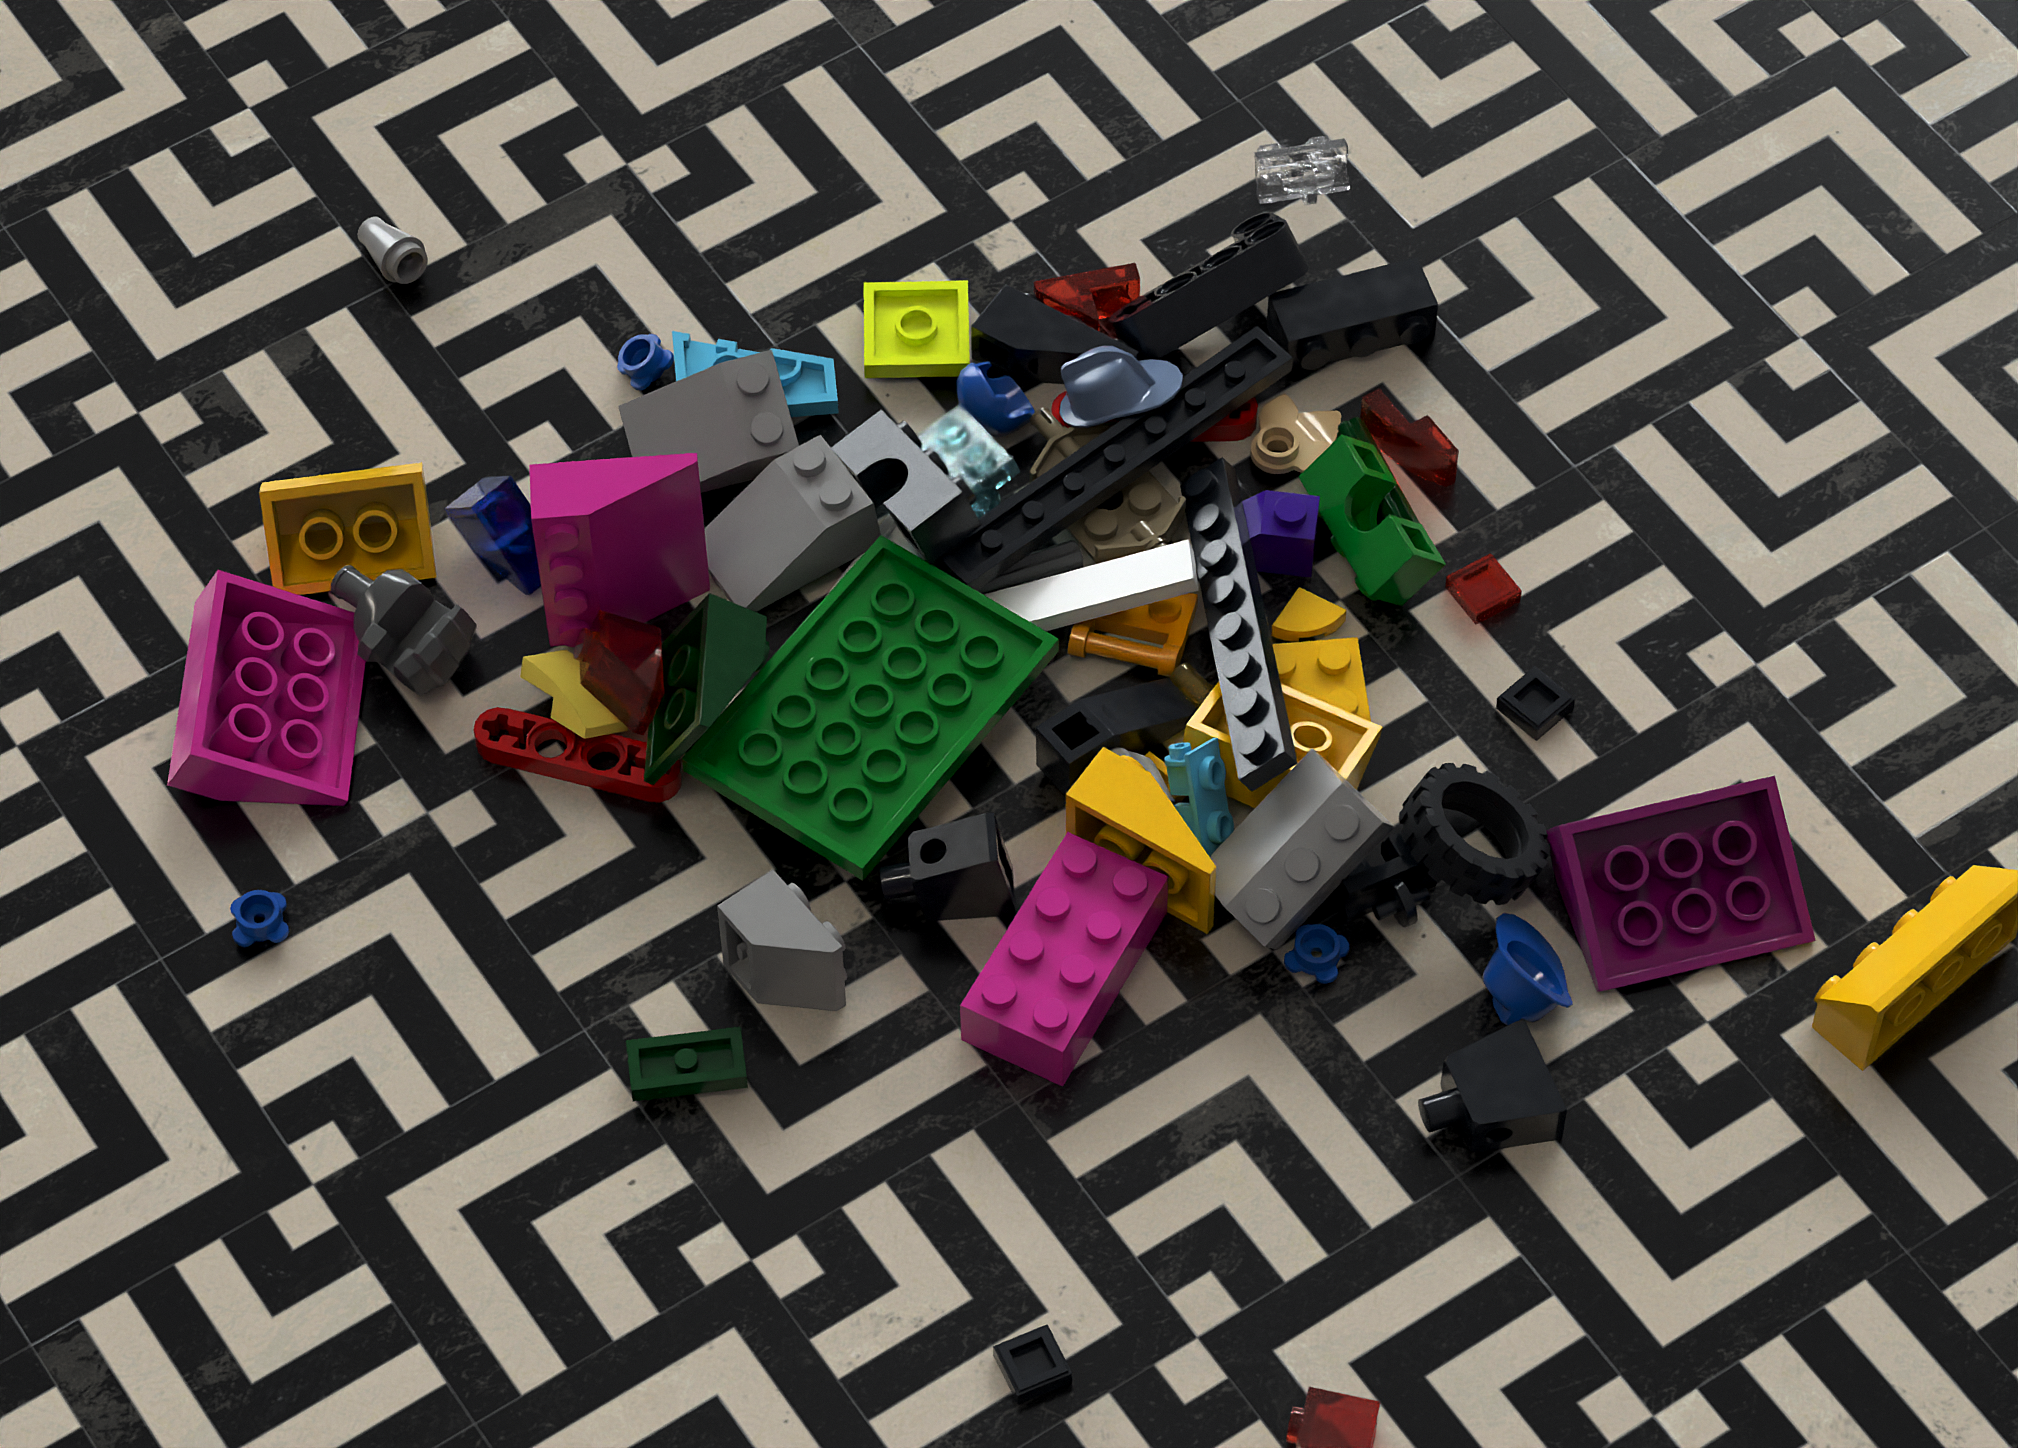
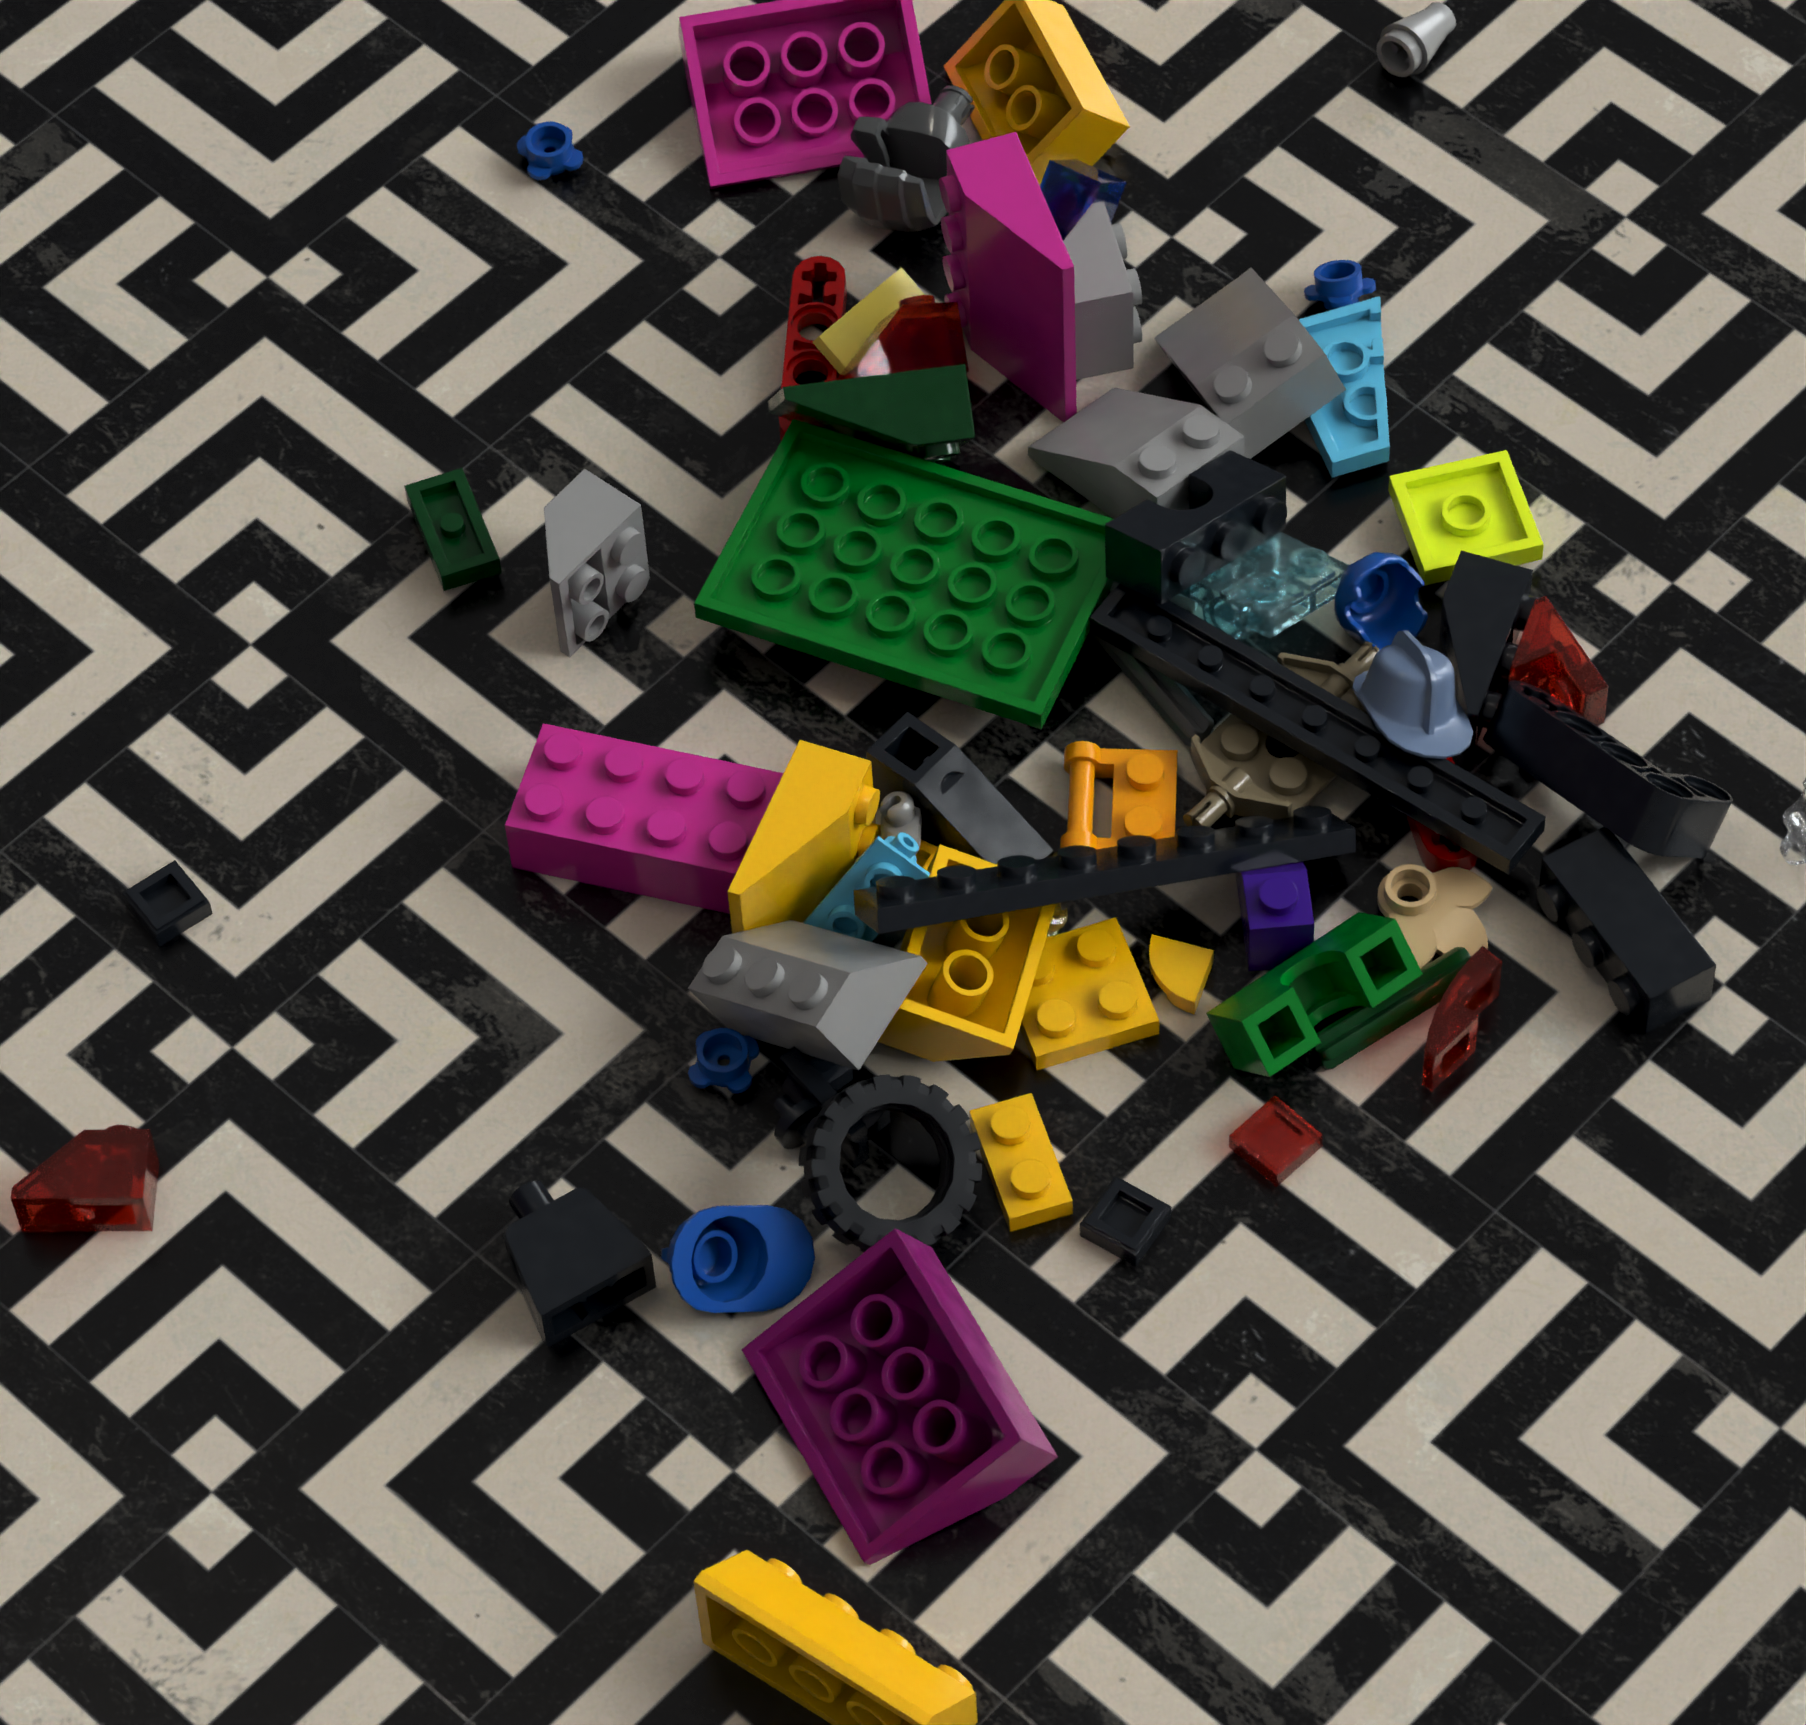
camera: 80 degrees right, 0 degrees up
(956, 871) = (722, 674): black torso -> none
(1103, 587) = (1130, 743): white tile -> none
(1487, 751) = (1021, 1162): none -> yellow plate

